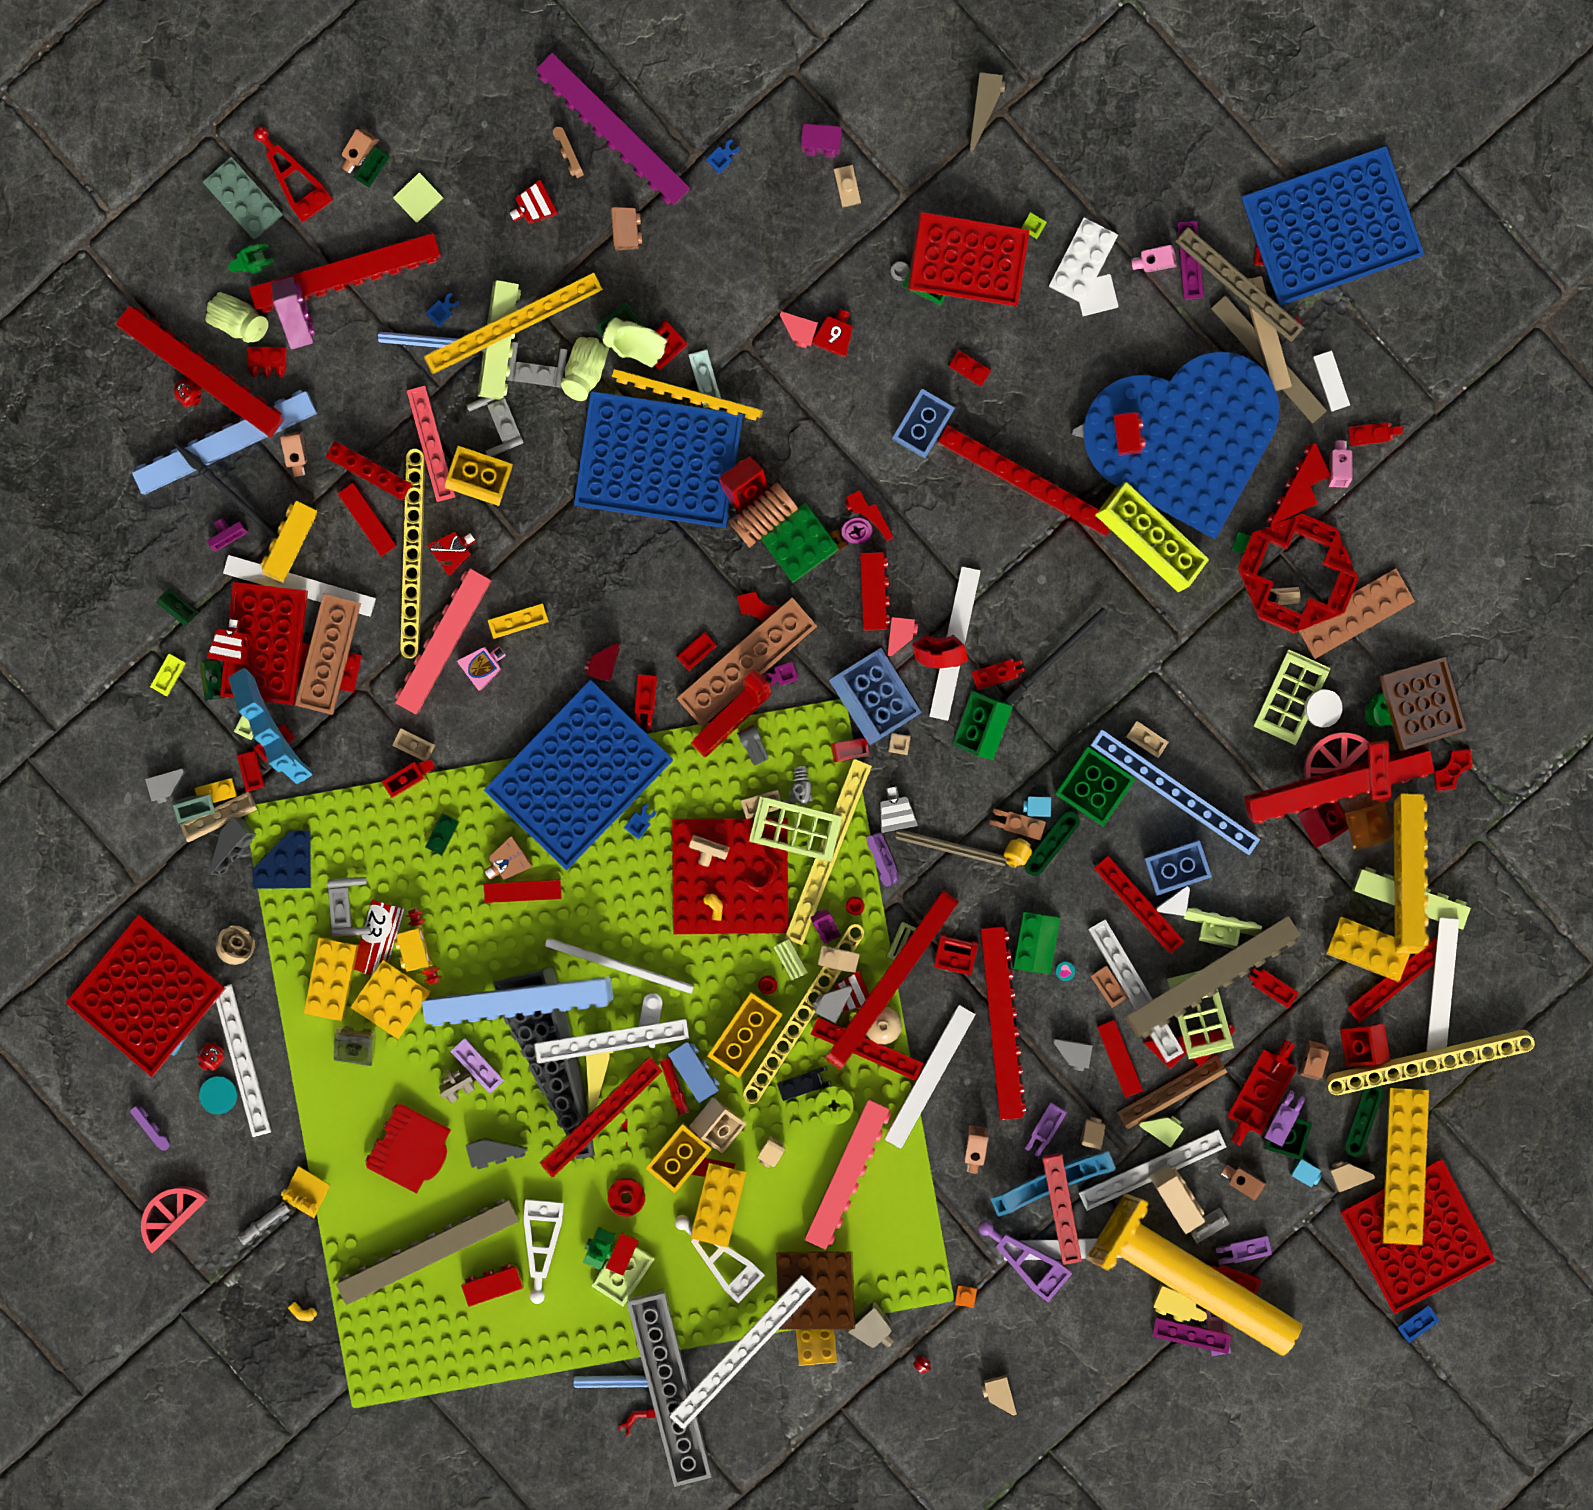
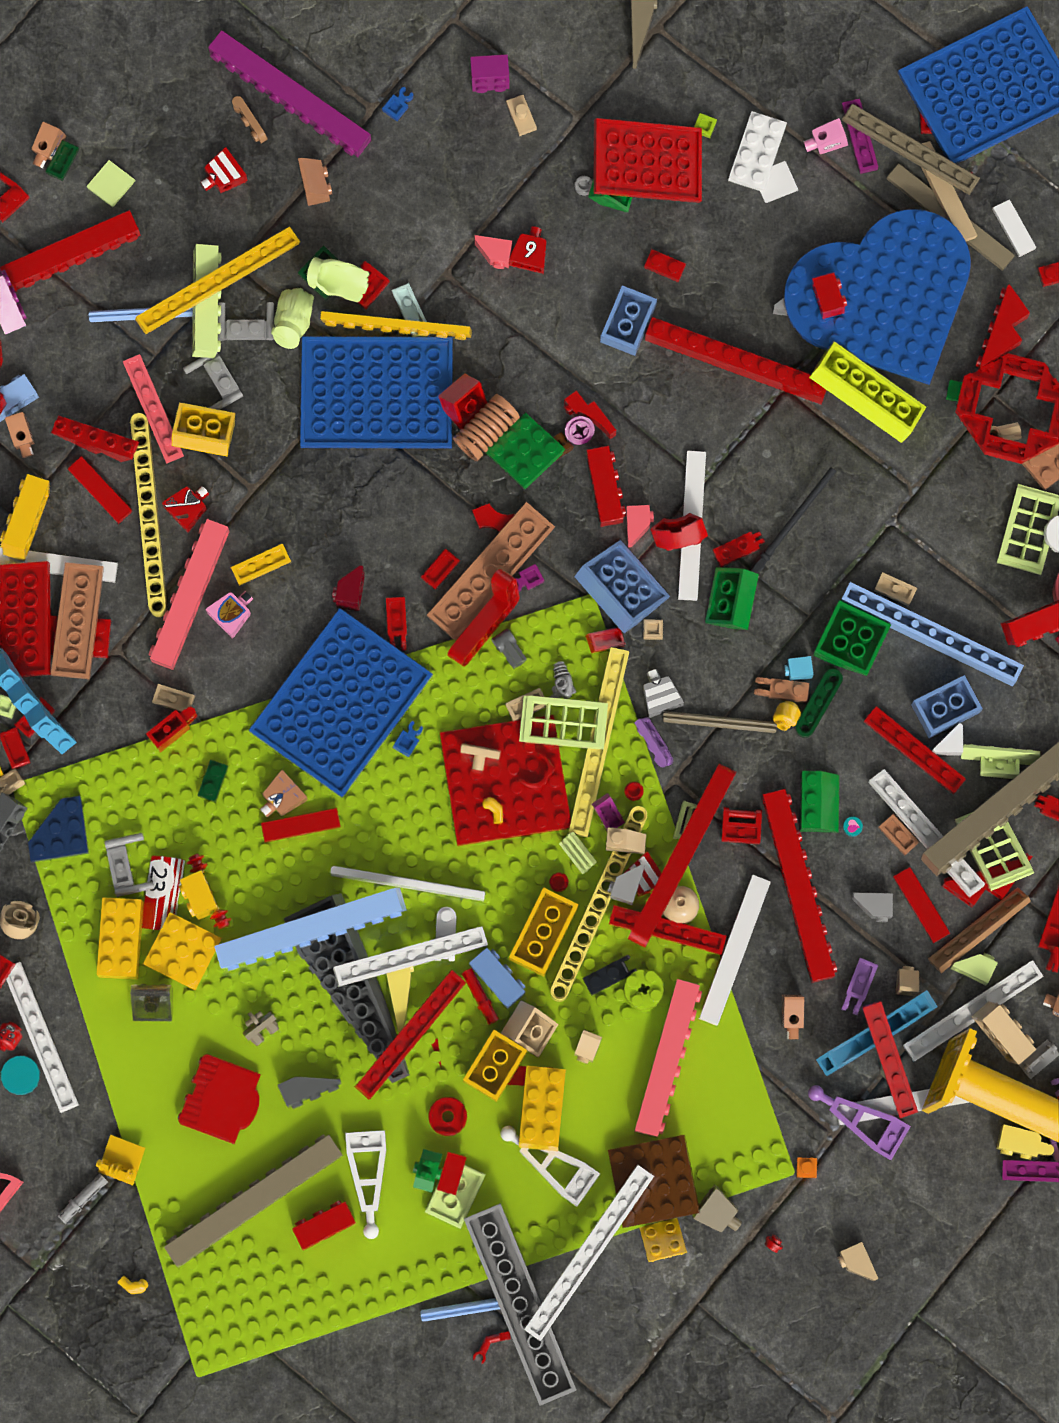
camera: 10 degrees left, 10 degrees down
(439, 312) = (146, 284): blue plate -> none
(477, 1065) = (278, 1004): lavender plate -> none
(1340, 471) = (1037, 303): bright pink torso -> none

